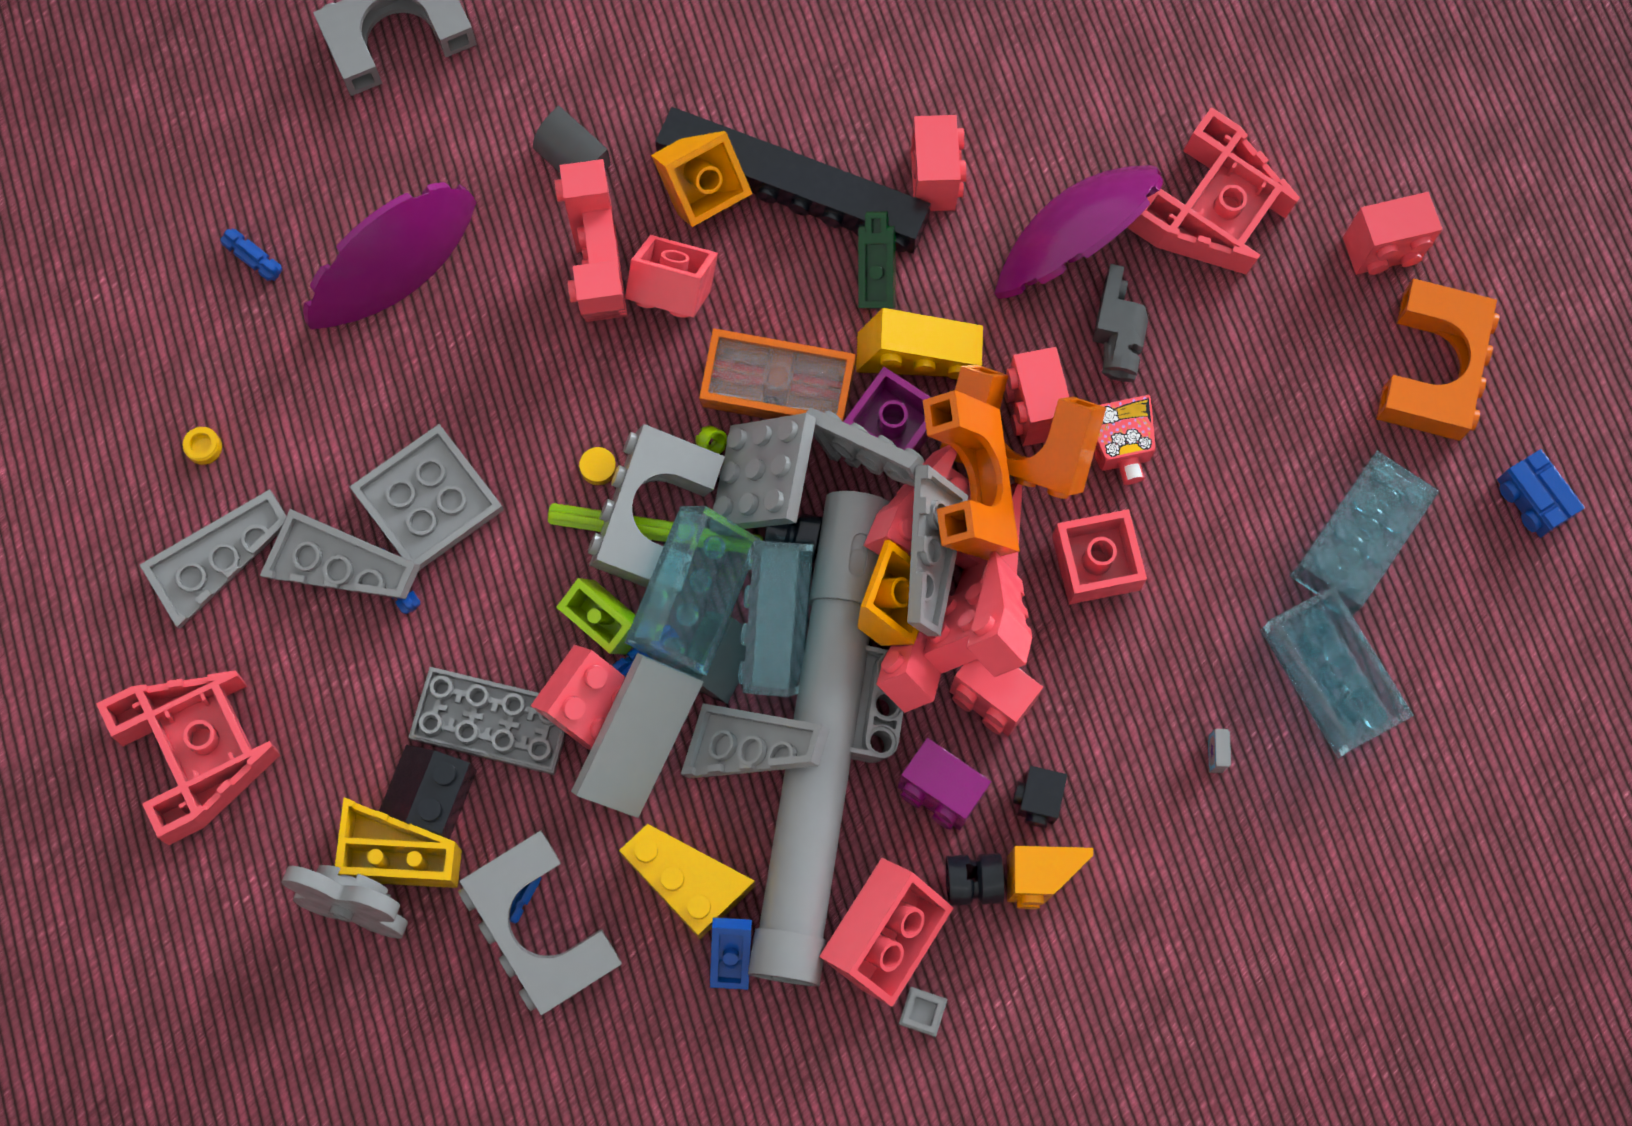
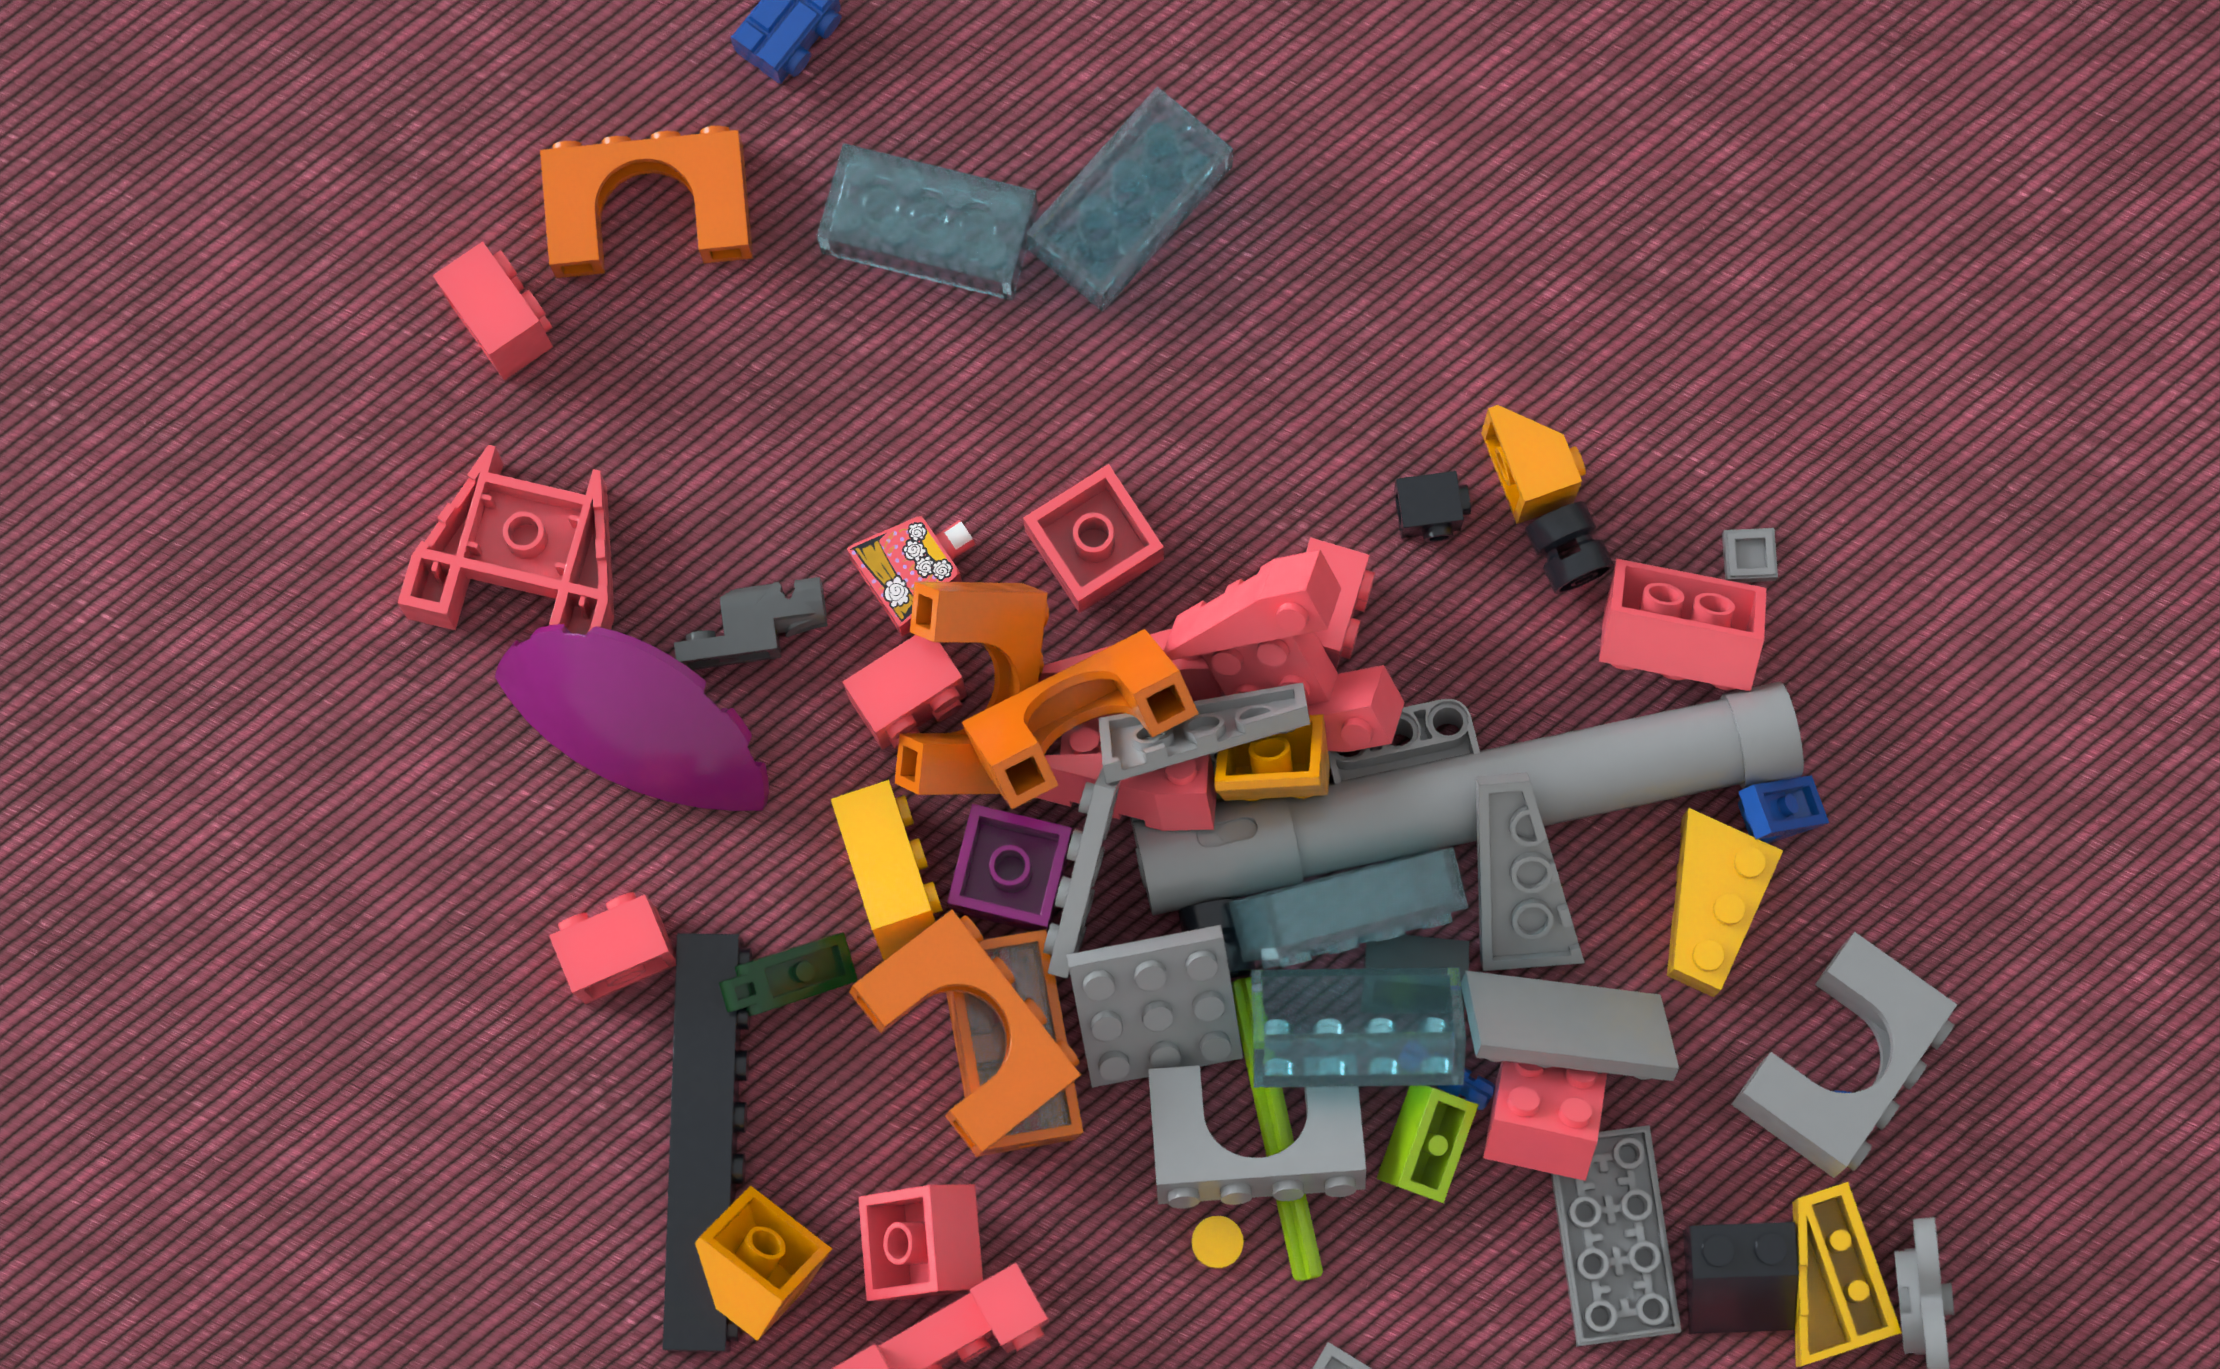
camera: 105 degrees left, 5 degrees up
(719, 439) = (1124, 1103): lime hinge -> none
(842, 349) = (951, 960): none -> orange arch
(942, 785) = (1471, 624): magenta brick -> none
(1219, 750) = (1285, 309): light grey tile -> none

